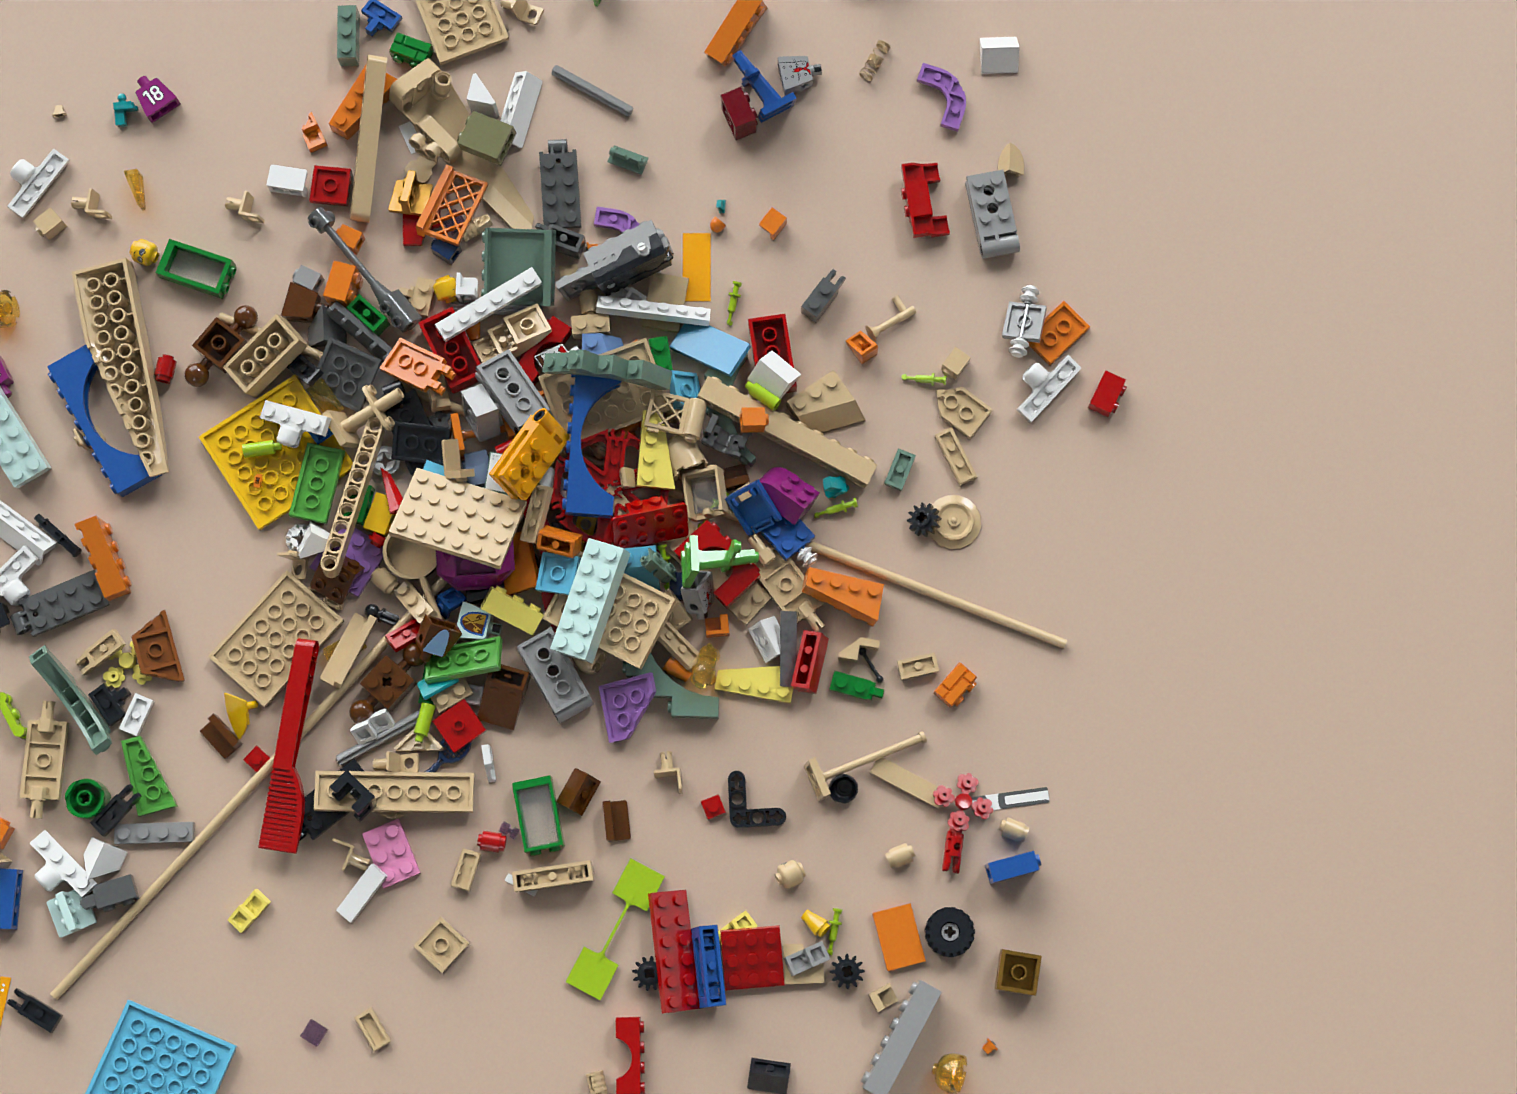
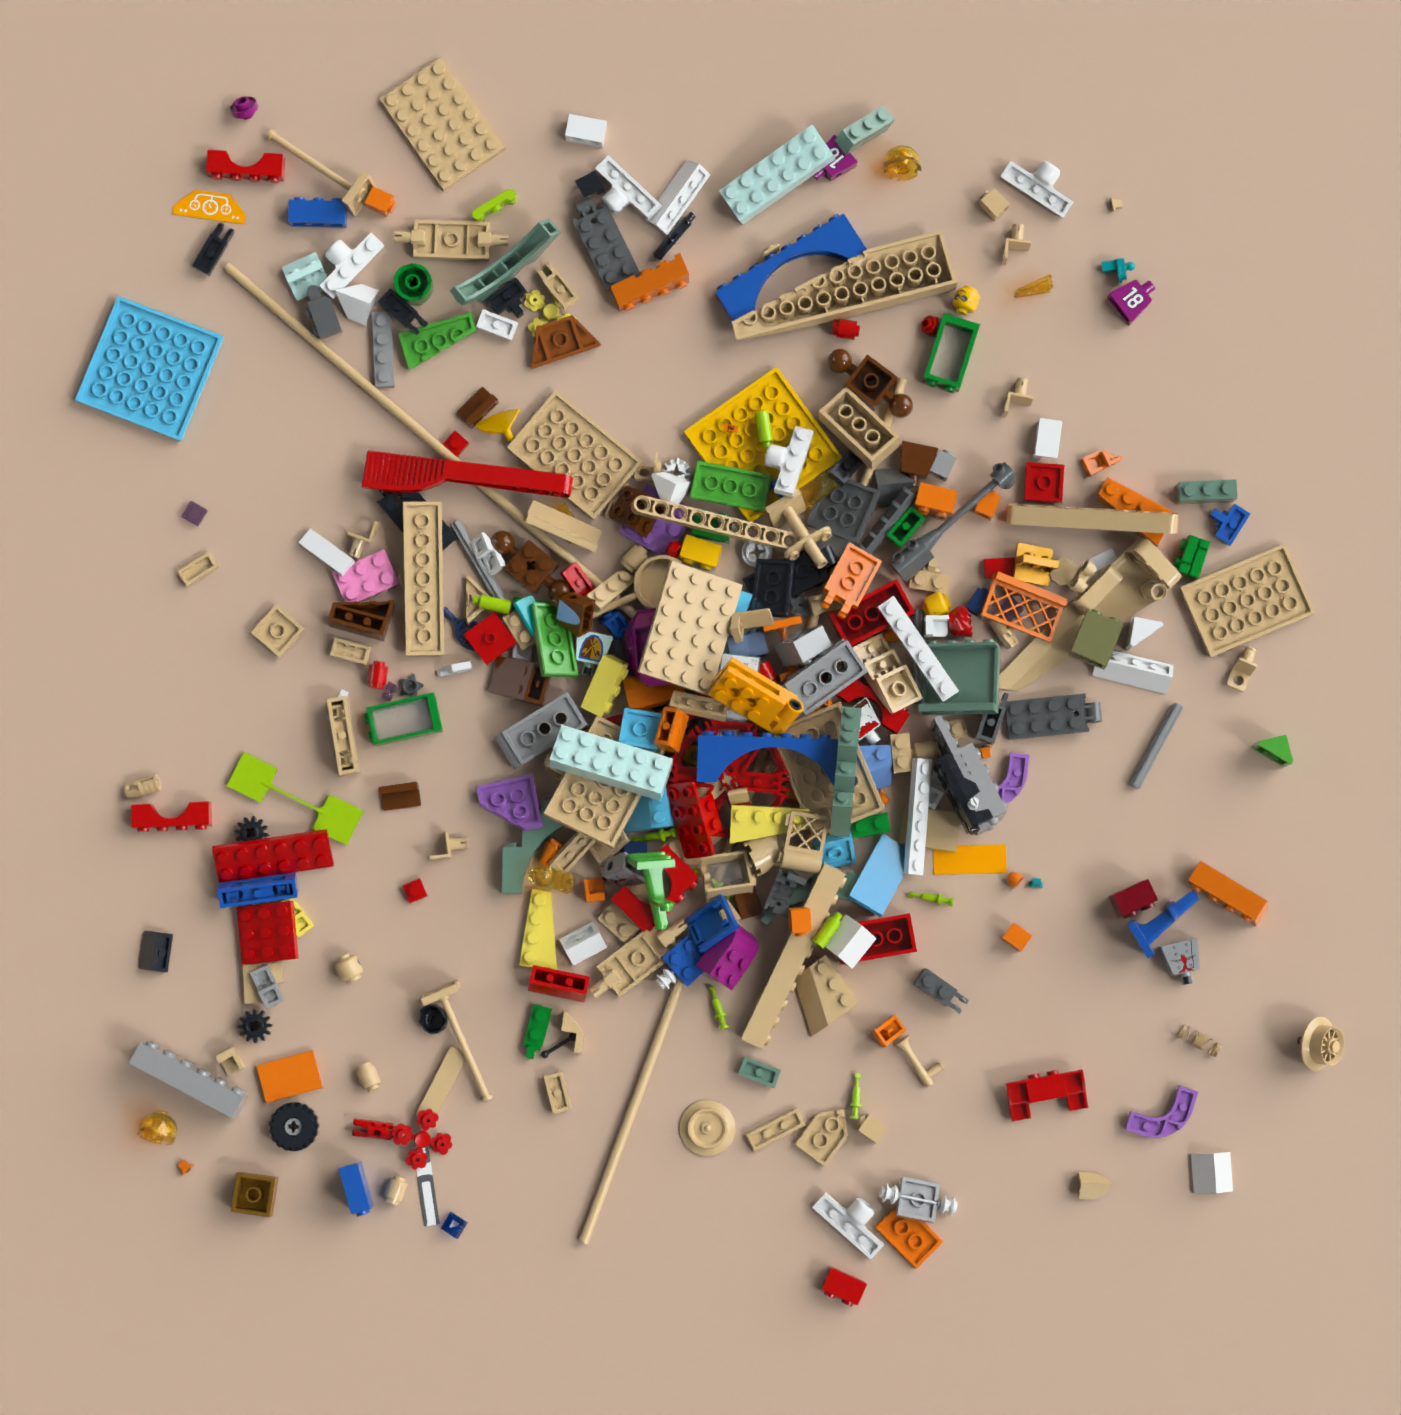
camera: 85 degrees right, 5 degrees up
(167, 289) = (929, 325): none -> red plate
(249, 910) = (309, 445): light yellow slope -> none
(349, 784) = (418, 543): black panel -> none
(383, 615) = (603, 549): black axle -> none
(393, 494) = (717, 563): bar -> none
(396, 762) = (452, 578): tan bracket -> none
(432, 855) = (362, 618): none -> reddish brown wedge
(465, 265) = (960, 622): none -> red hair
(504, 804) = (410, 681): none -> dark grey plate
(578, 791) = (428, 757): reddish brown panel -> none
(627, 159) = (1082, 785): sand green hinge -> none
(664, 572) = (649, 830): sand green hinge -> none
(742, 808) = (413, 919): black beam -> none
(788, 647) = (583, 961): flat silver sticker -> none
(817, 924) = (301, 994): yellow cone -> none
(834, 929) = (302, 1013): lime piece -> none
(835, 486) = (739, 1006): teal piece -> none
(845, 593) = (627, 1022): orange wedge -> none
(928, 524) = (700, 1099): black gear -> none
(955, 685) = (538, 1130): orange brick -> none
(996, 230) = (1014, 1170): light grey hinge -> none
(1048, 771) = (454, 1225): none -> clear blue tile

